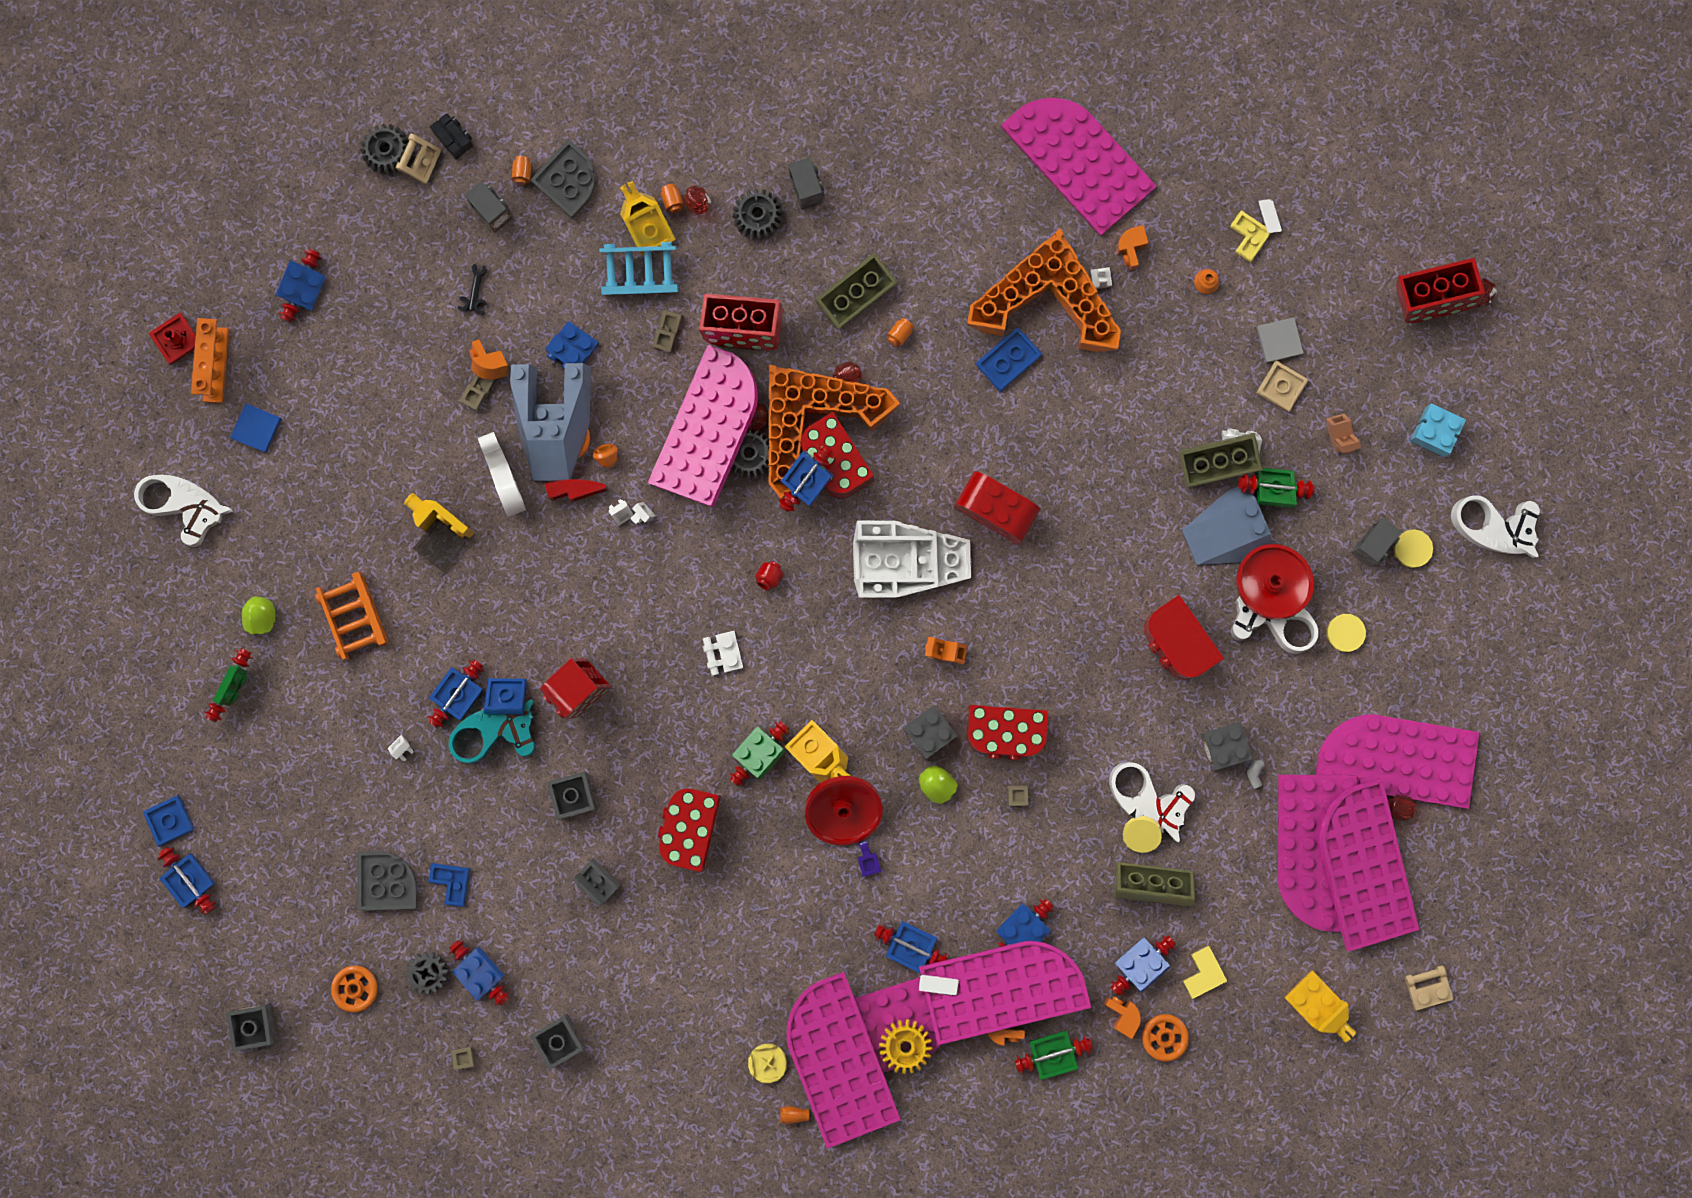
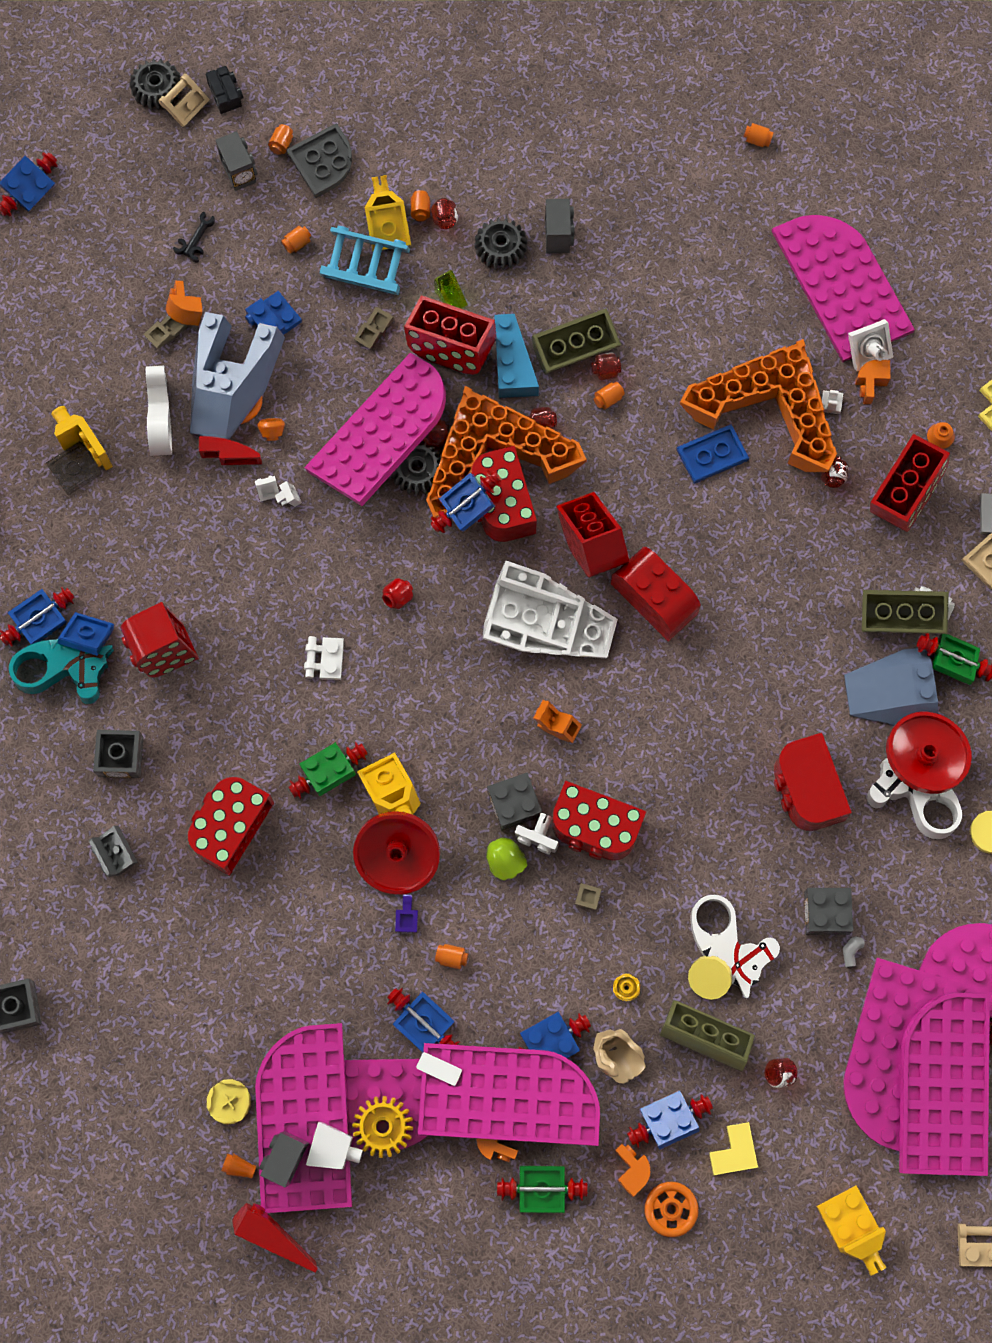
camera: 15 degrees right, 10 degrees down
(568, 265) = (296, 239): none -> orange brick
(726, 276) = (449, 290): none -> clear neon green slope
(804, 327) = (514, 366): none -> dark azure wedge
(832, 1163) = (261, 1229): none -> red wedge
(834, 1101) = (283, 1159): none -> dark grey brick
(870, 1079) = (332, 1148): none -> white torso
(890, 305) = (606, 366): none -> clear red head
(917, 883) = (451, 956): none -> orange brick
(926, 473) = (592, 534): none -> red brick
(960, 758) = (538, 835): none -> white plate
(962, 35) = (758, 135): none -> orange brick
(1079, 860) = (626, 980): none -> yellow plate
(1086, 930) = (621, 1063): none -> tan hair
(1122, 215) = (870, 344): none -> white plate
(1126, 347) = (837, 473): none -> clear red head
(1193, 340) = (910, 483): none -> red brick
(1224, 897) = (781, 1072): none -> clear red head

